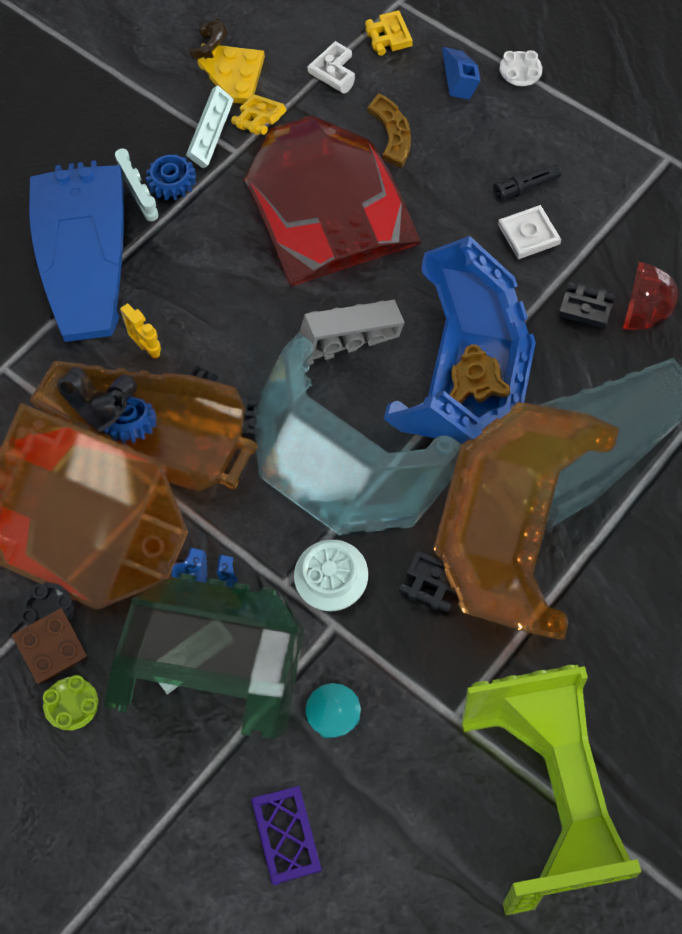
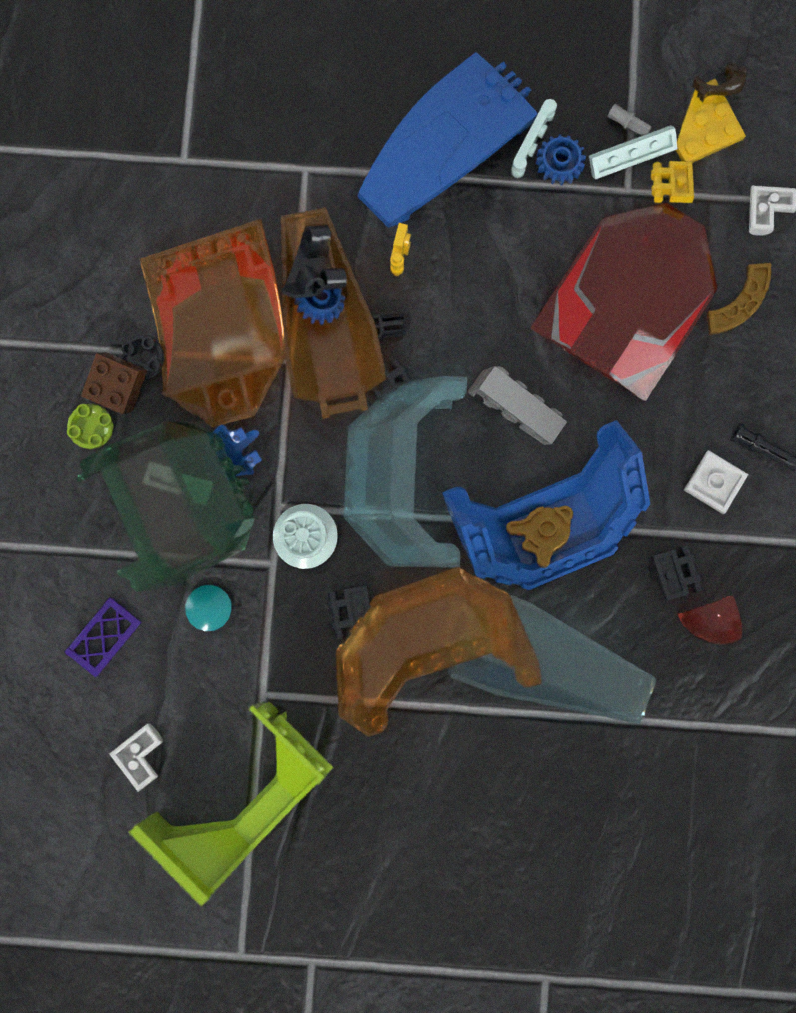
camera: 50 degrees right, 20 degrees up
(182, 115) = (629, 120): none -> light grey axle
(431, 885) = (131, 755): none -> white brick

